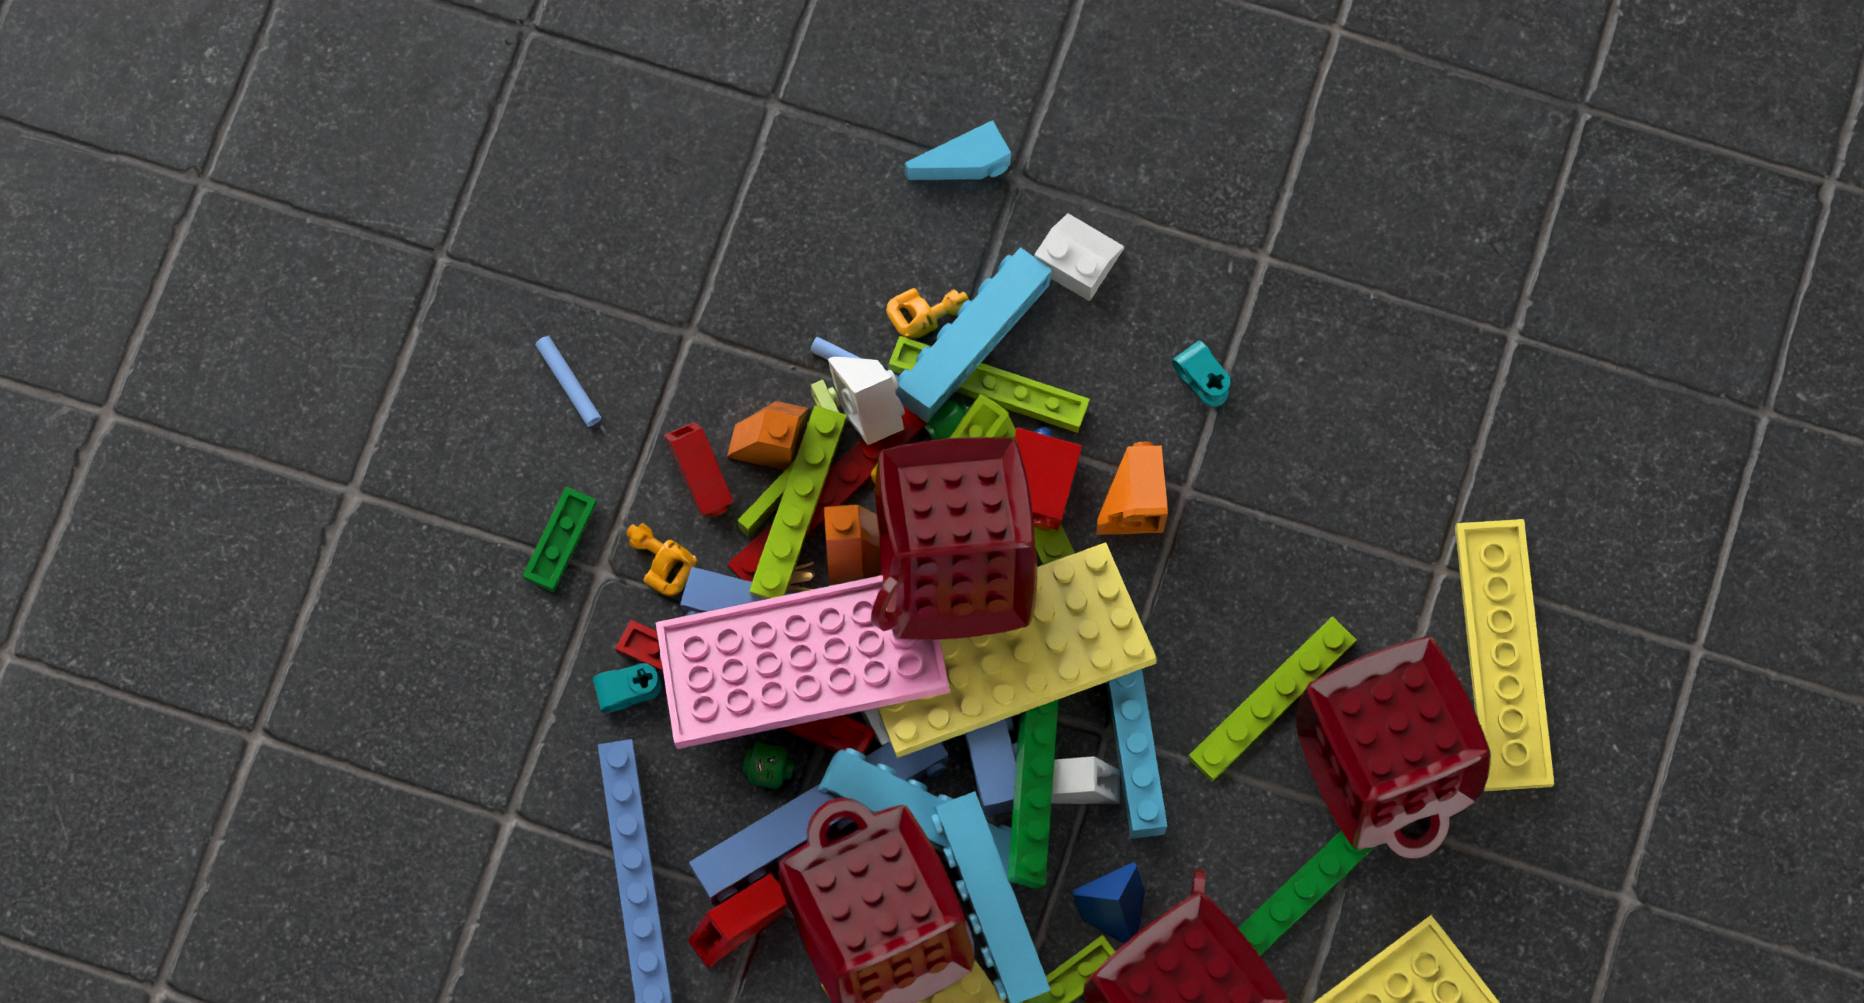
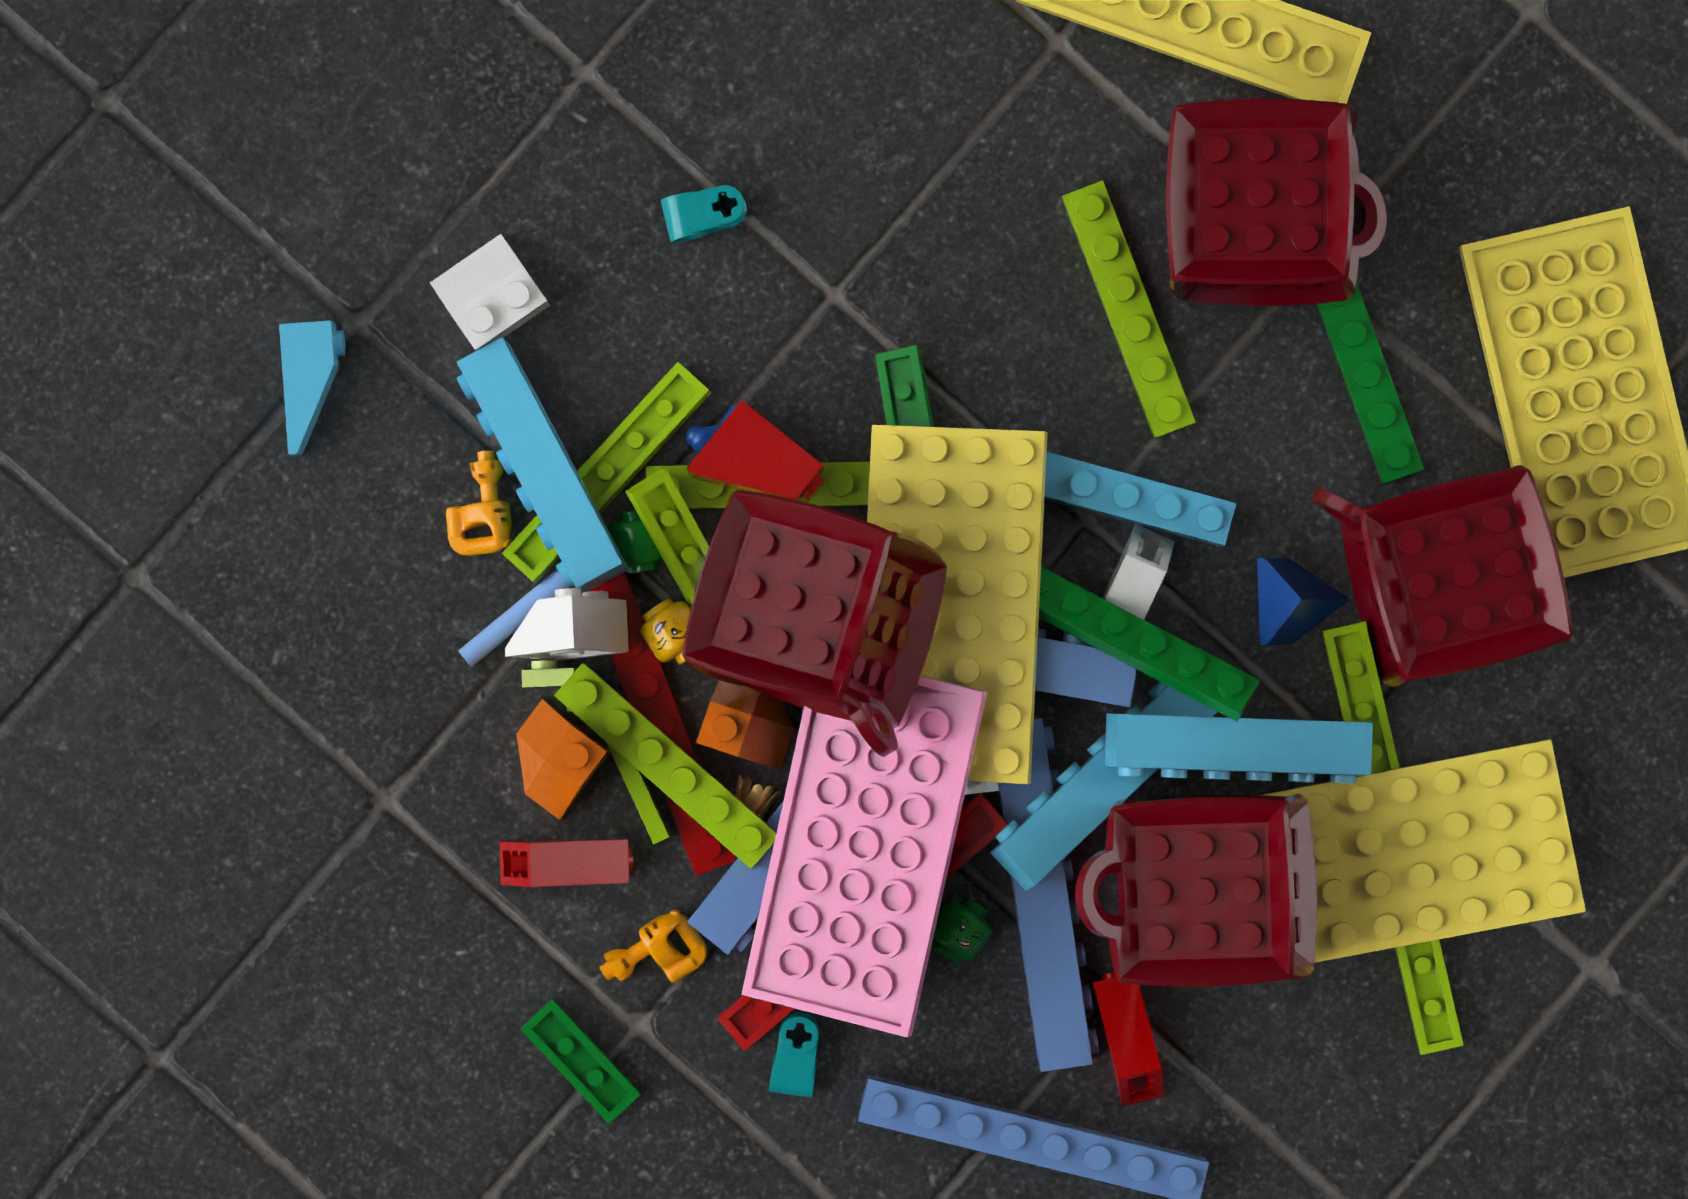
camera: 70 degrees left, 15 degrees up
(568, 381) = (385, 970): light blue piece -> none
(1137, 494) = (817, 356): orange slope -> none
(1144, 561) = (904, 387): none -> green plate

